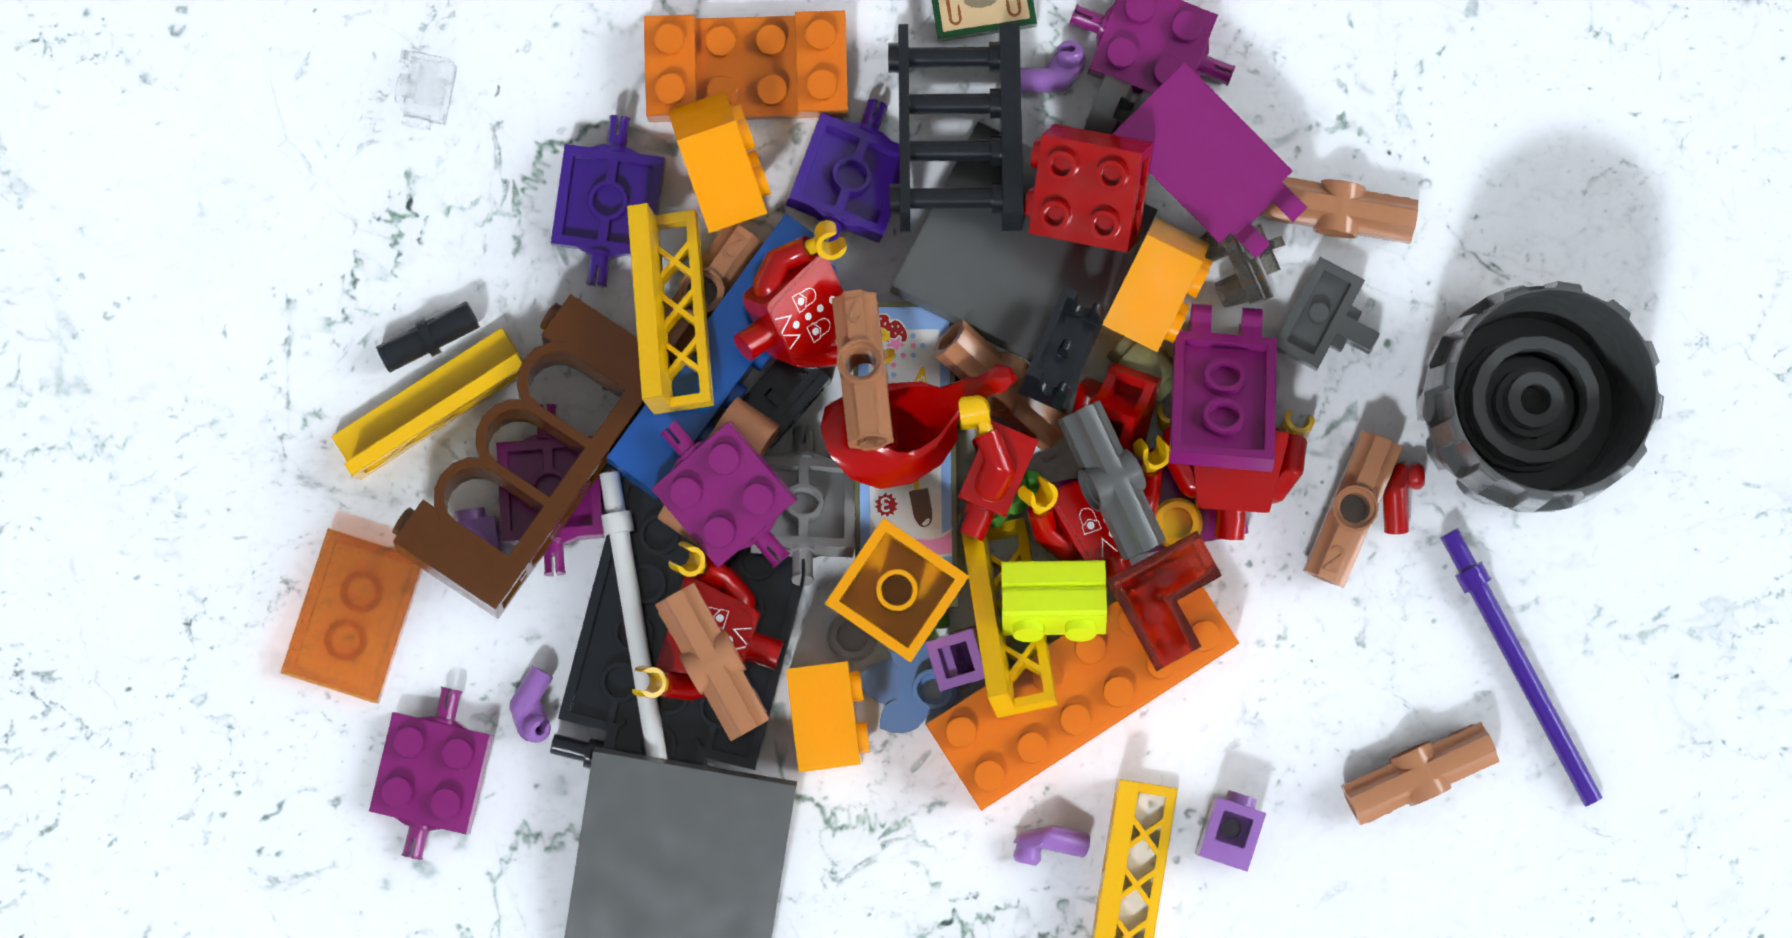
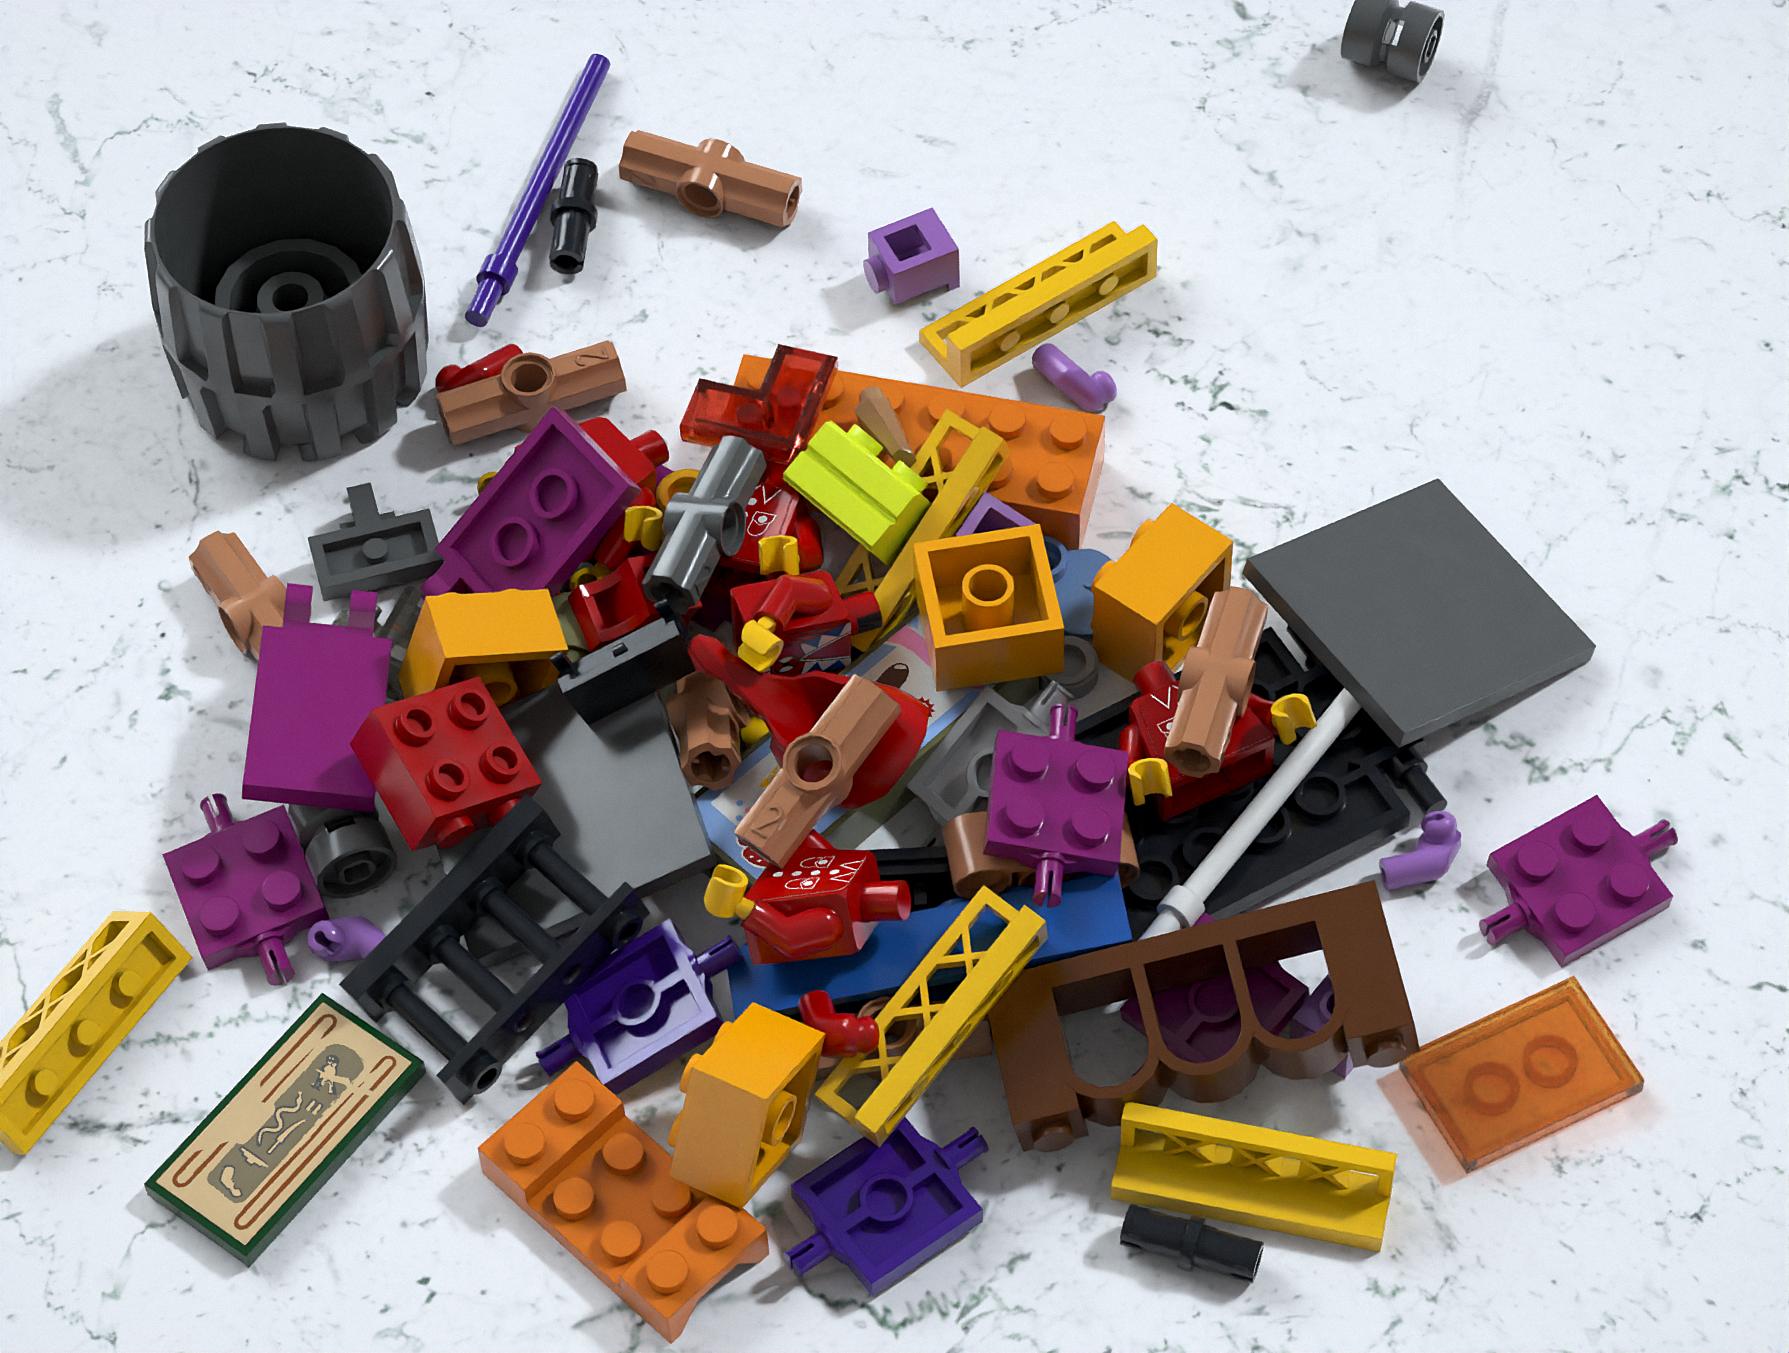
camera: 135 degrees left, 30 degrees down
(716, 244) = (844, 1032): none -> red arm
(1088, 660) = (881, 422): none -> medium nougat bar
(1473, 664) = (573, 216): none -> black pin

